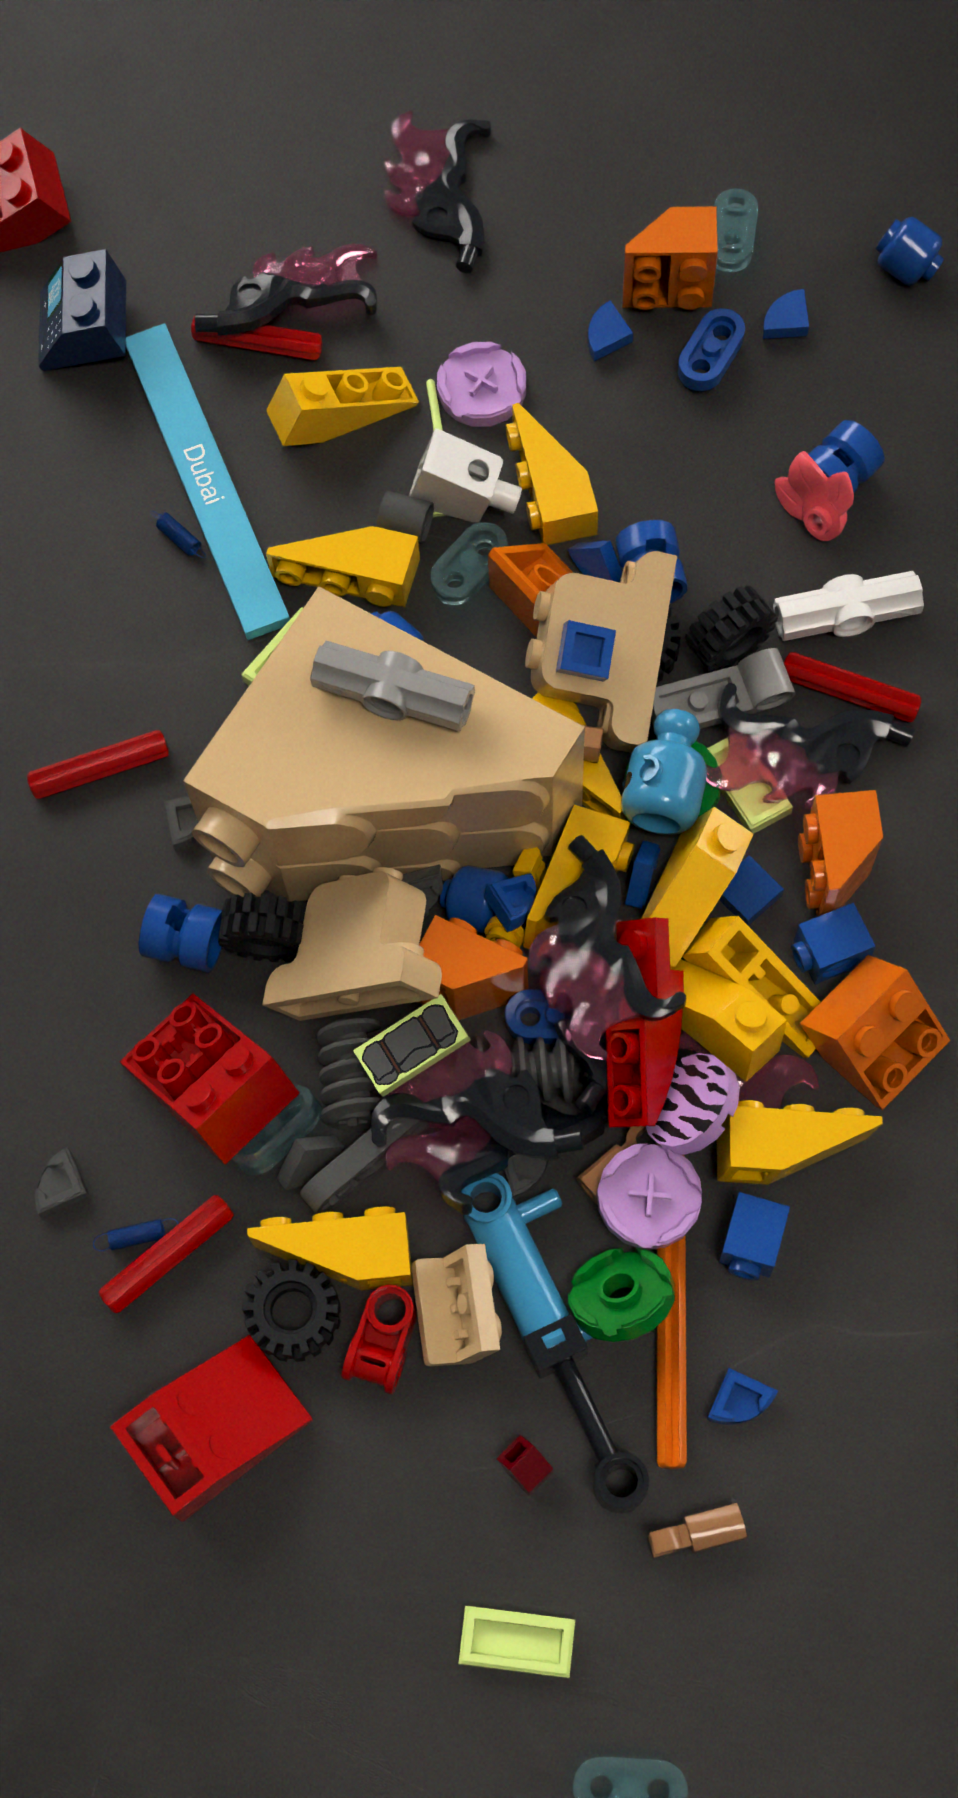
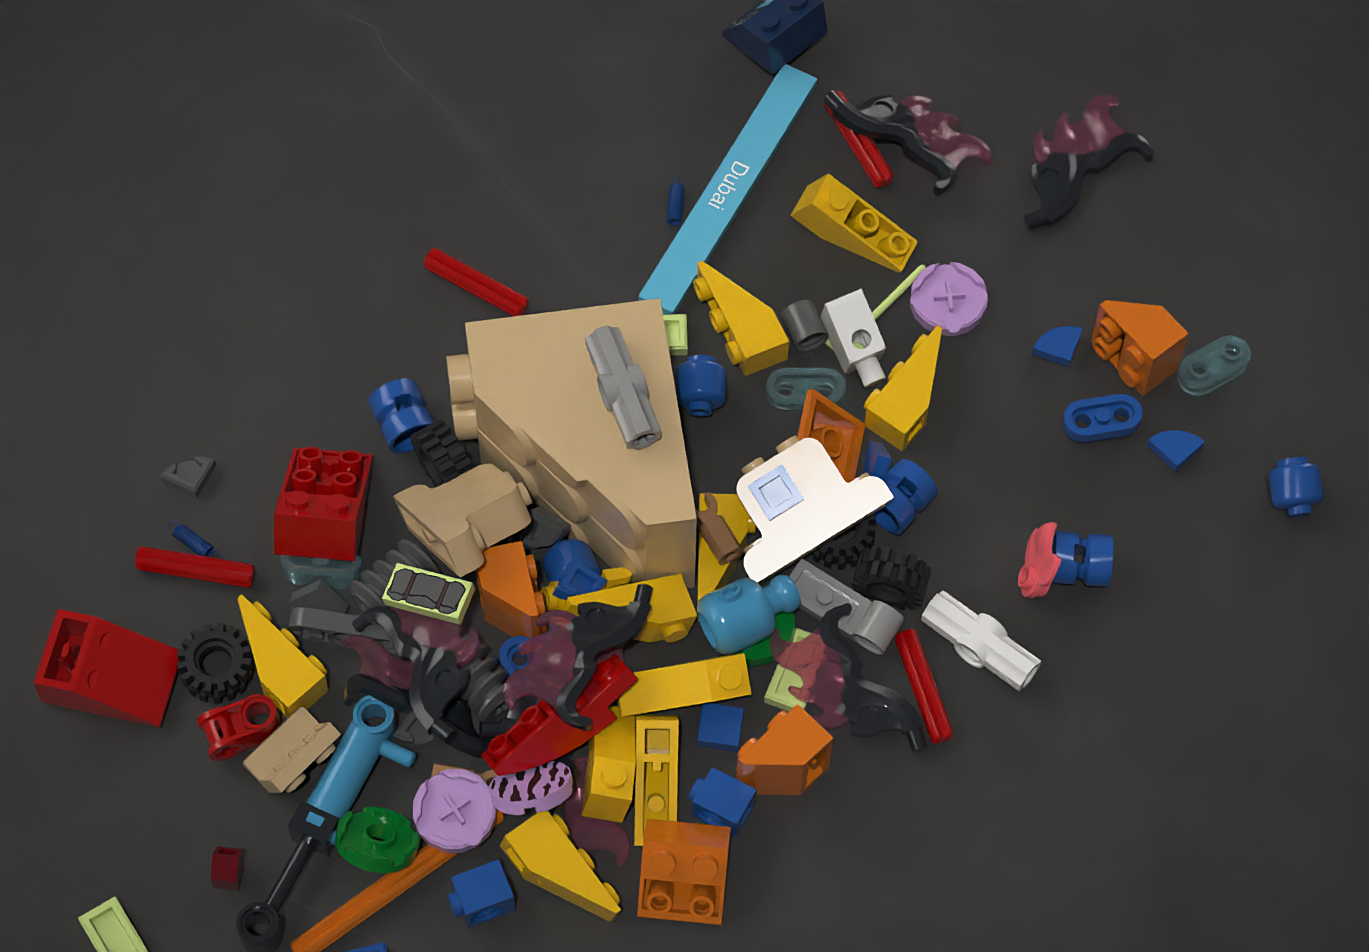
camera: 45 degrees right, 5 degrees down
(642, 874) = (674, 649): blue tile -> none

